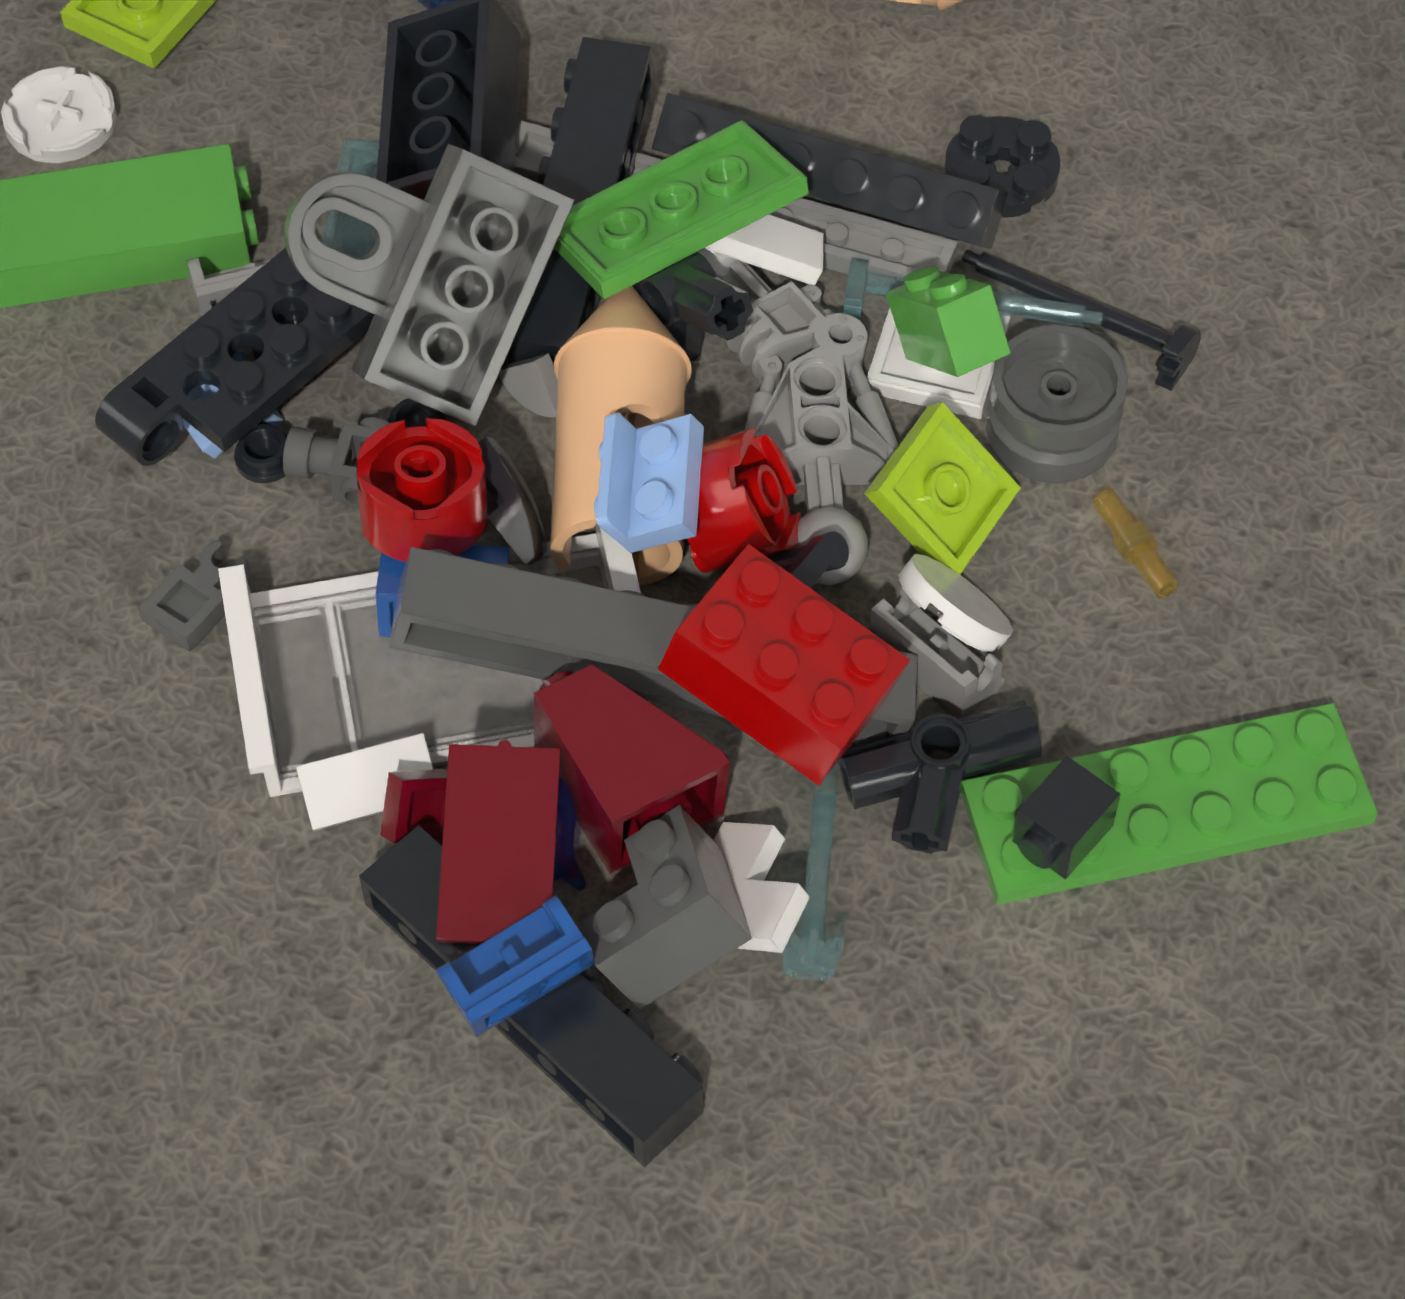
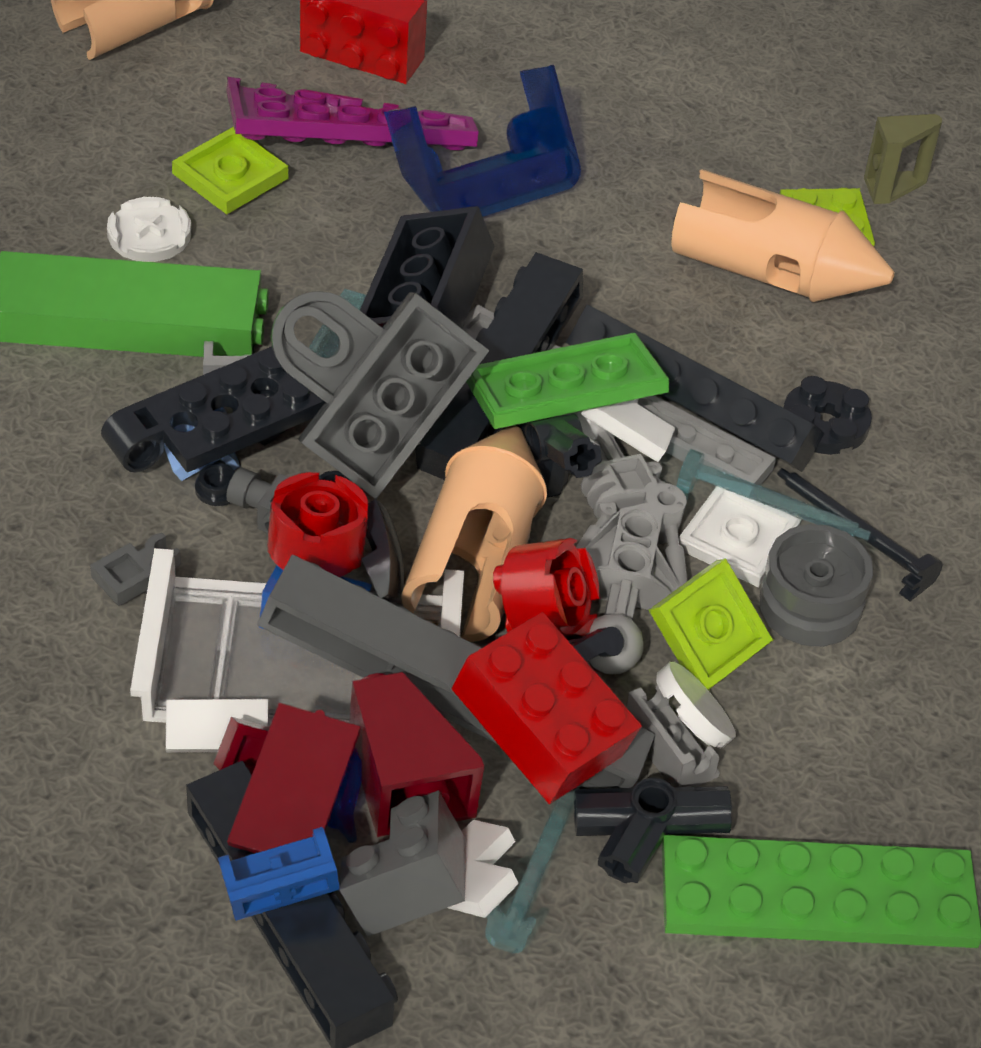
camera: 10 degrees right, 10 degrees down
(533, 384) = (427, 482): light grey tile -> none
(649, 481) = (485, 557): light blue bracket -> none
(947, 321) = (747, 504): bright green brick -> none
(1065, 818) = (732, 876): black brick -> none
(1135, 543) = (849, 700): clear yellow bar -> none

